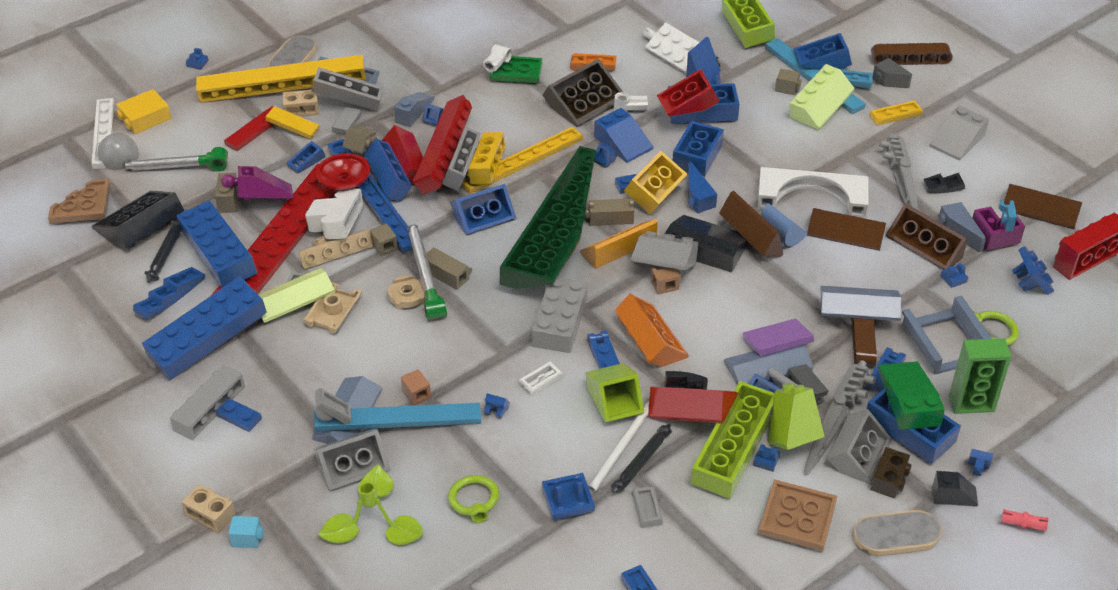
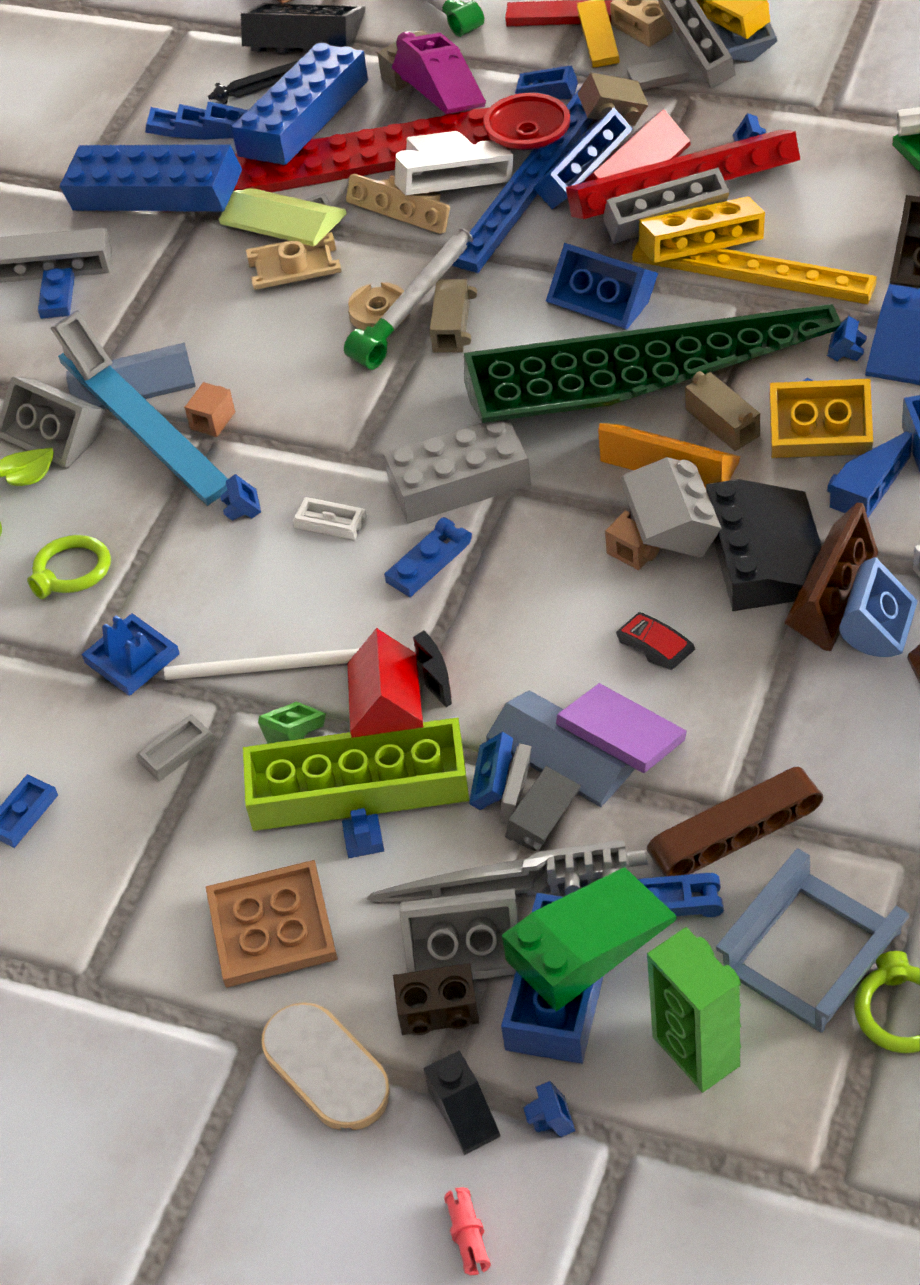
camera: 65 degrees right, 5 degrees up
(384, 239) = (448, 225): dark tan brick -> none
(411, 108) = (729, 105): sand blue slope -> none
(615, 391) = (346, 598): lime slope -> none
(641, 458) = (258, 695): black wheel -> none
(650, 331) = (508, 580): orange slope -> none
(682, 451) = (290, 722): none -> bright green slope
(730, 301) = (658, 640): none -> slope
(794, 417) = (430, 818): lime slope -> none
(860, 303) = (772, 786): slope -> none

